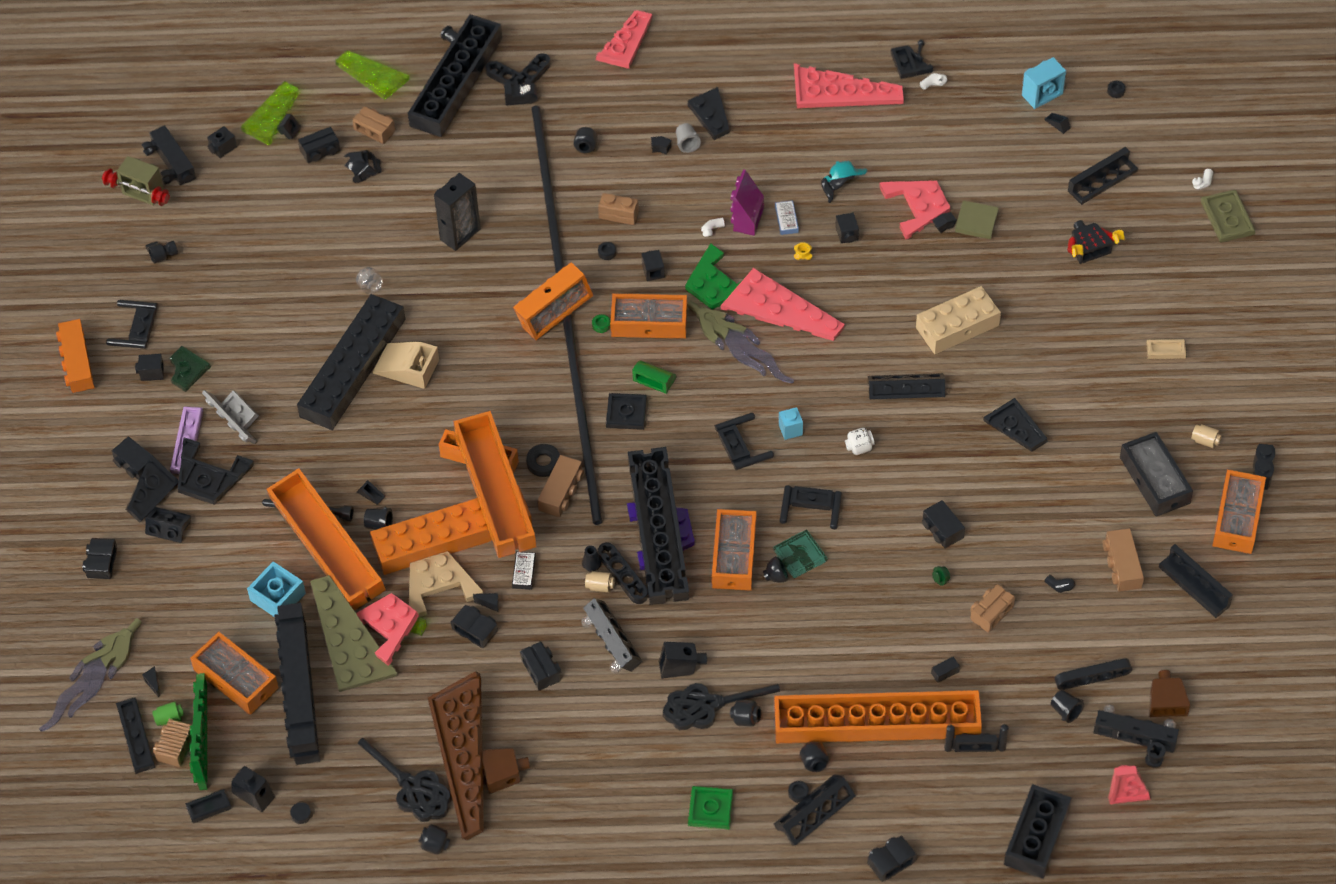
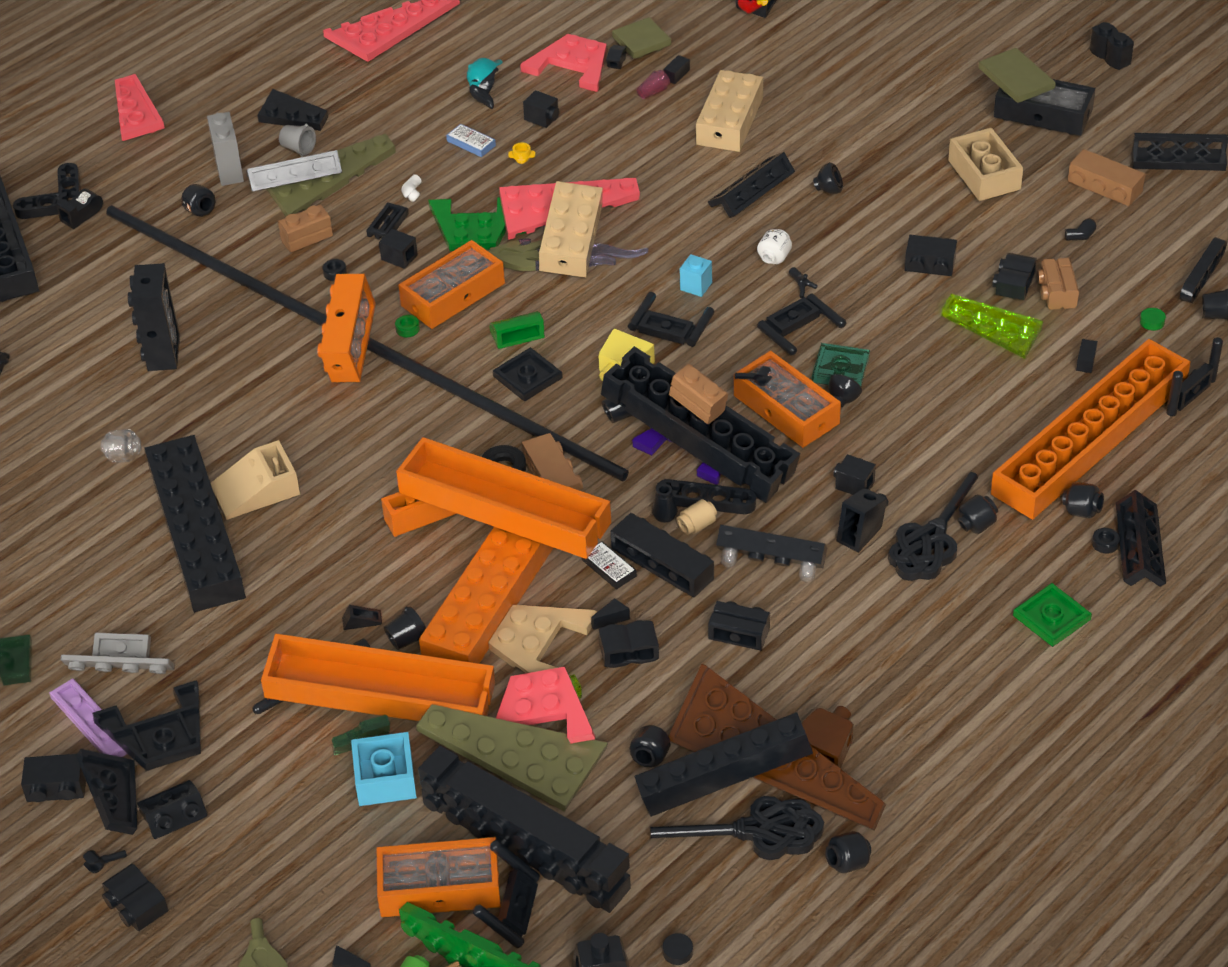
camera: 45 degrees left, 10 degrees down
(106, 523) = (95, 863): none -> black hand
(256, 719) = (517, 899): none -> black plate
(288, 563) = (369, 728): none -> clear green tile
(413, 693) = (650, 746): none -> black head
(425, 737) = (723, 764): none -> black brick
(551, 588) = (662, 554): none -> black brick
(631, 115) = (225, 148): none -> light grey brick
(653, 161) = (294, 170): none -> fence
(661, 144) = (274, 157): black piece -> none
(662, 507) = (698, 394): none -> medium nougat brick
(672, 175) = (353, 161): none -> olive wing
(674, 242) = (391, 221): none -> black tile
(685, 445) = (617, 346): none -> light yellow torso
(712, 630) = (854, 475): none -> black brick
(726, 525) = (760, 377): none -> black hand
(746, 205) = (429, 148): magenta slope -> none
(753, 332) = (570, 229): none -> tan brick
(850, 477) = (801, 280): none -> black bar
(921, 606) = (995, 324): none -> clear neon green wing
(939, 262) = (655, 83): none -> clear pink cone
(941, 575) = (982, 292): dark green plate -> none
(954, 420) = (829, 179): none -> black brick
(969, 261) = (677, 68): none -> black piece
(973, 581) = (1014, 276): none -> black brick
(1016, 424) = (881, 148): black wing -> none
(1019, 679) = (1152, 319): none -> green tile
(1057, 488) = (985, 164): none -> tan brick
(1152, 440) = (1016, 75): none -> olive tile
(1166, 349) = (918, 25): tan tile -> none
(1206, 436) = (1041, 55): tan brick -> none
(1239, 511) = (1142, 83): brick -> none

